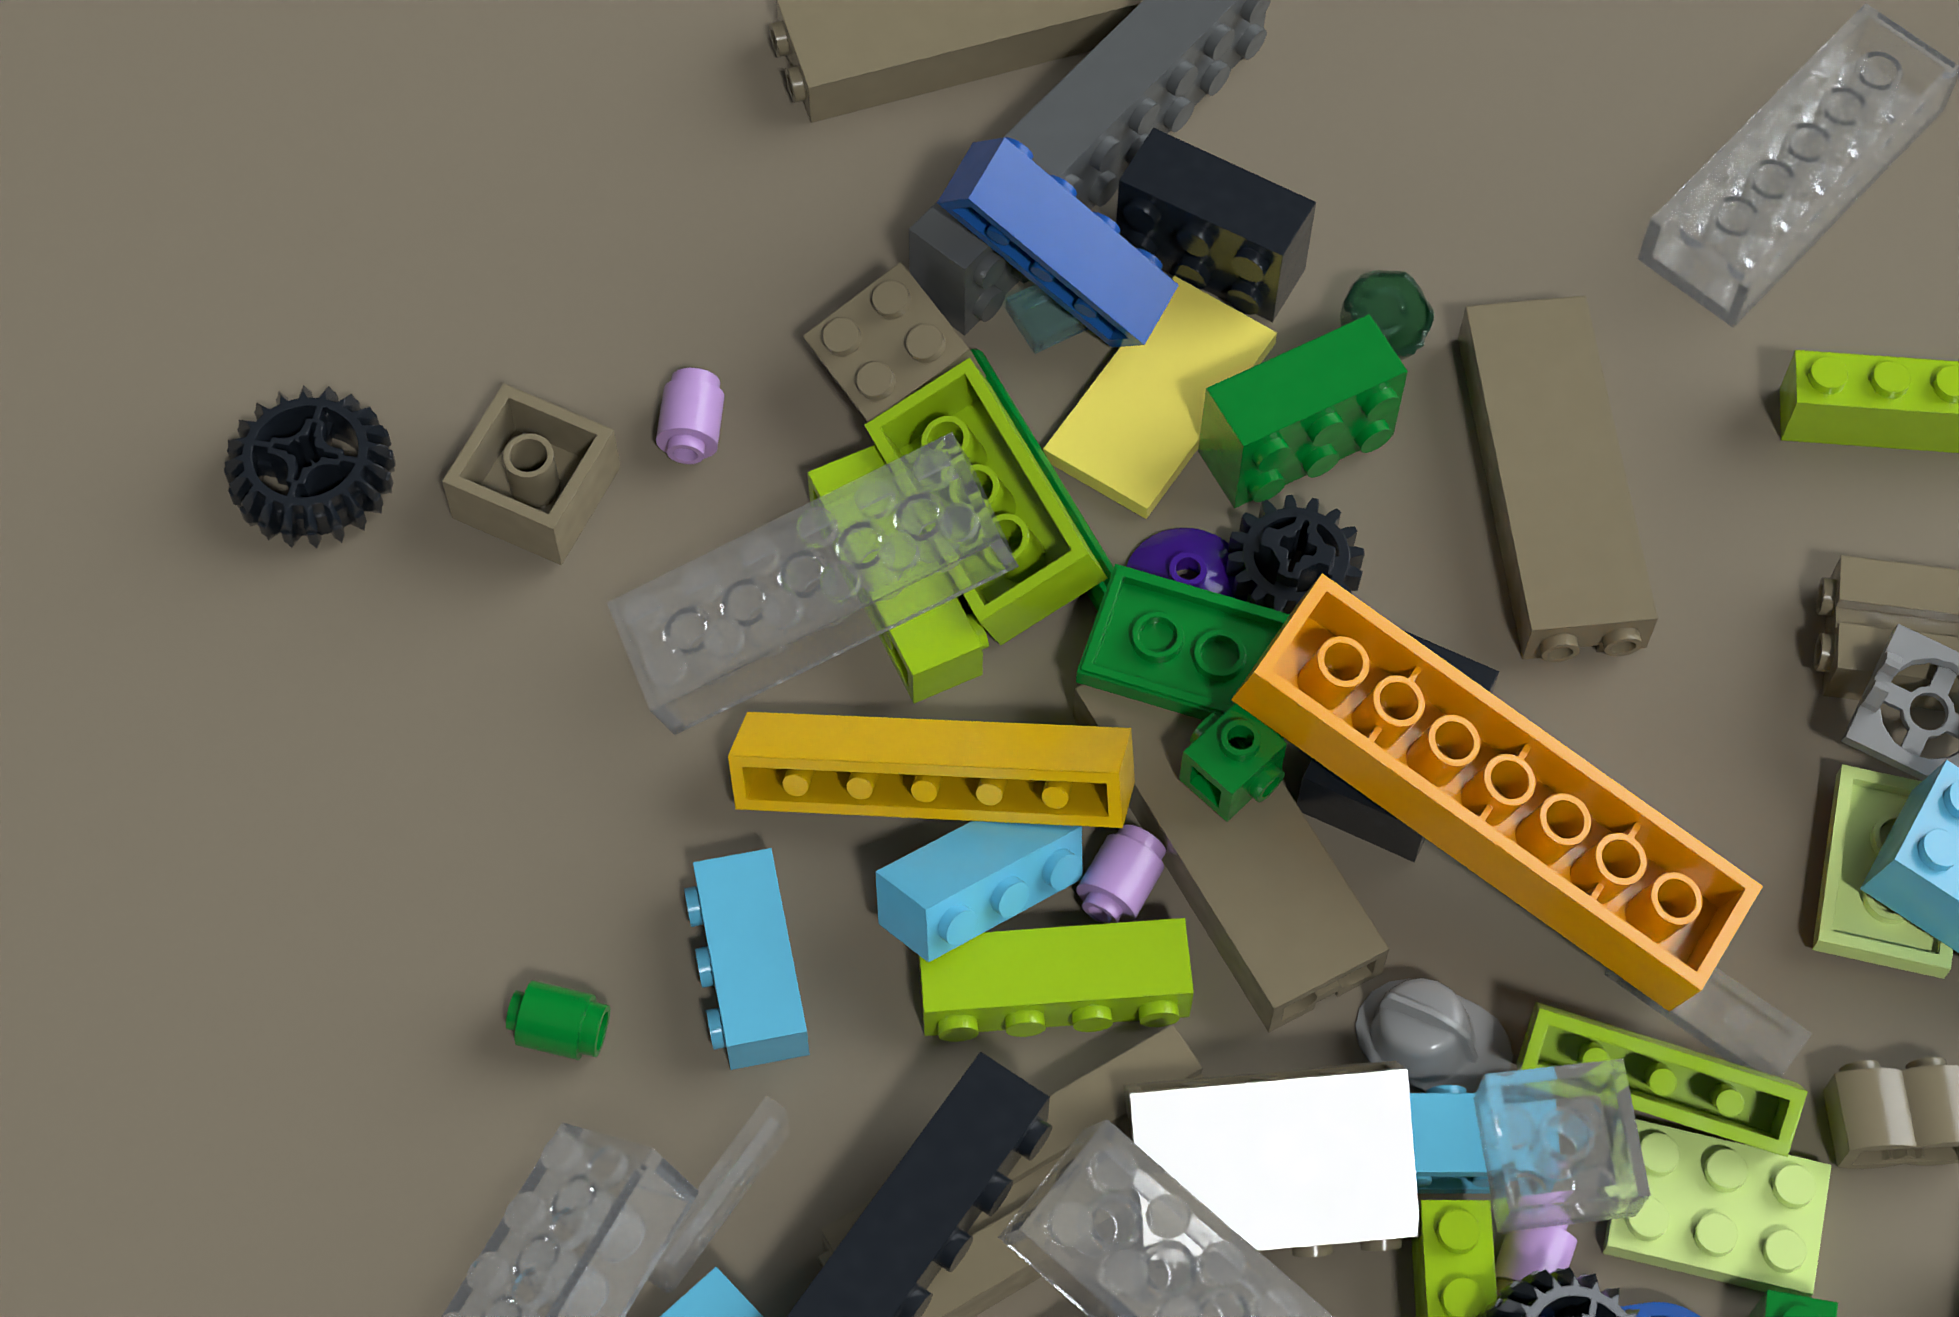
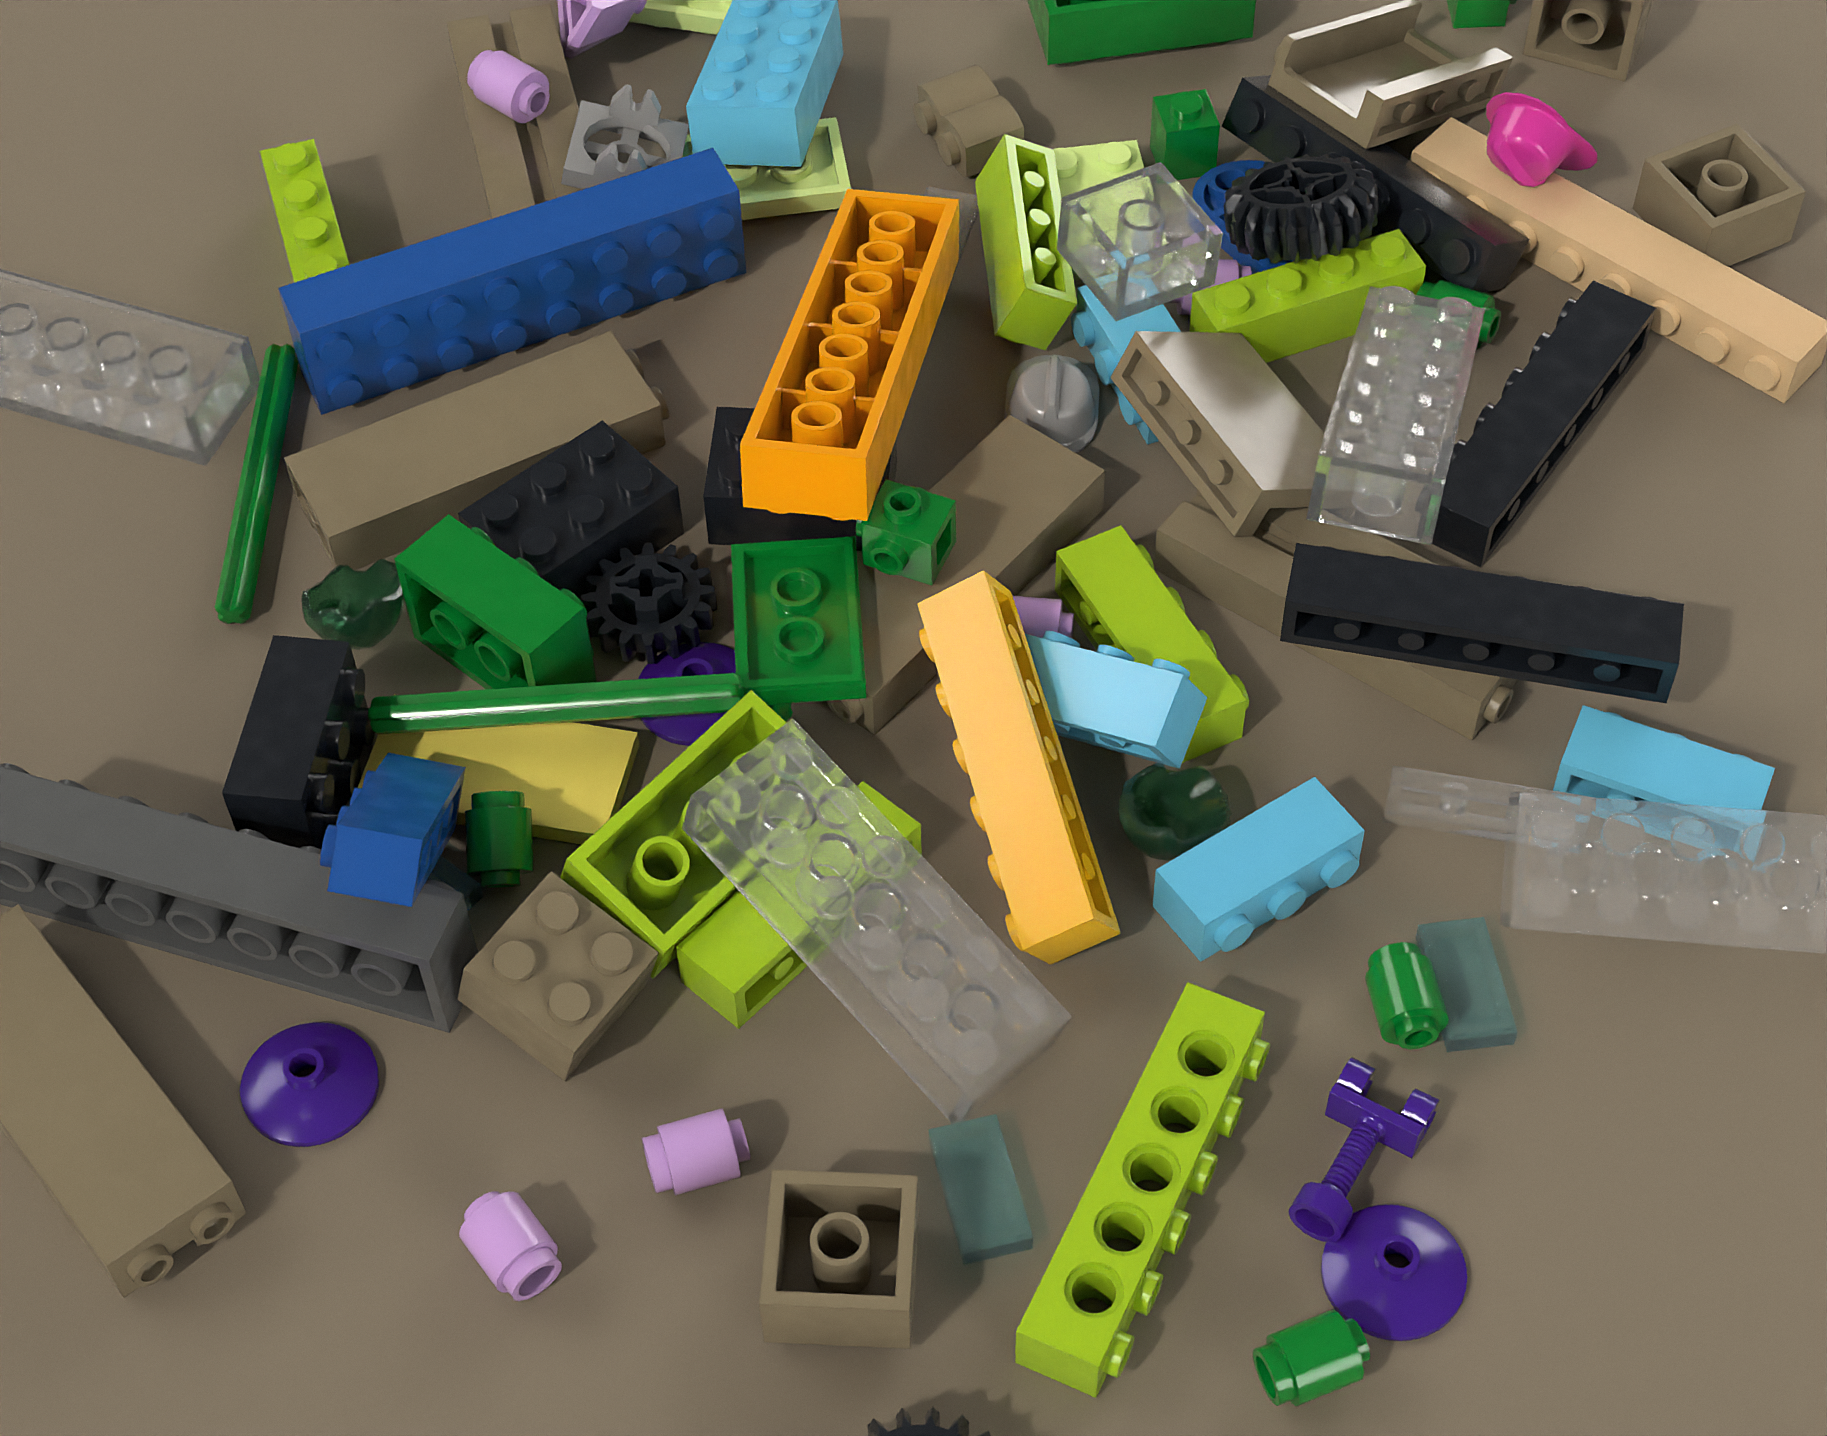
camera: 110 degrees left, 10 degrees down
(276, 785) = (1311, 1358): none -> green brick
(333, 928) = (1389, 1299): none -> dark purple dish
(400, 859) = (1323, 1207): none -> dark purple bar
(401, 612) = (1086, 1346): none -> lime brick
(555, 1090) = (1468, 984): none -> clear light blue tile
(557, 620) = (980, 1189): none -> clear light blue tile
(677, 269) = (510, 1244): none -> lavender brick
(836, 905) = (1172, 810): none -> clear green hair
(892, 203) = (315, 1106): none -> dark purple dish
(1066, 359) = (499, 838): none -> green brick
(1173, 430) = (555, 703): none -> green axle
(1422, 522) = (580, 509): none -> black brick
(1602, 294) = (256, 485): none -> green axle
(1765, 564) = (515, 280): none -> blue brick

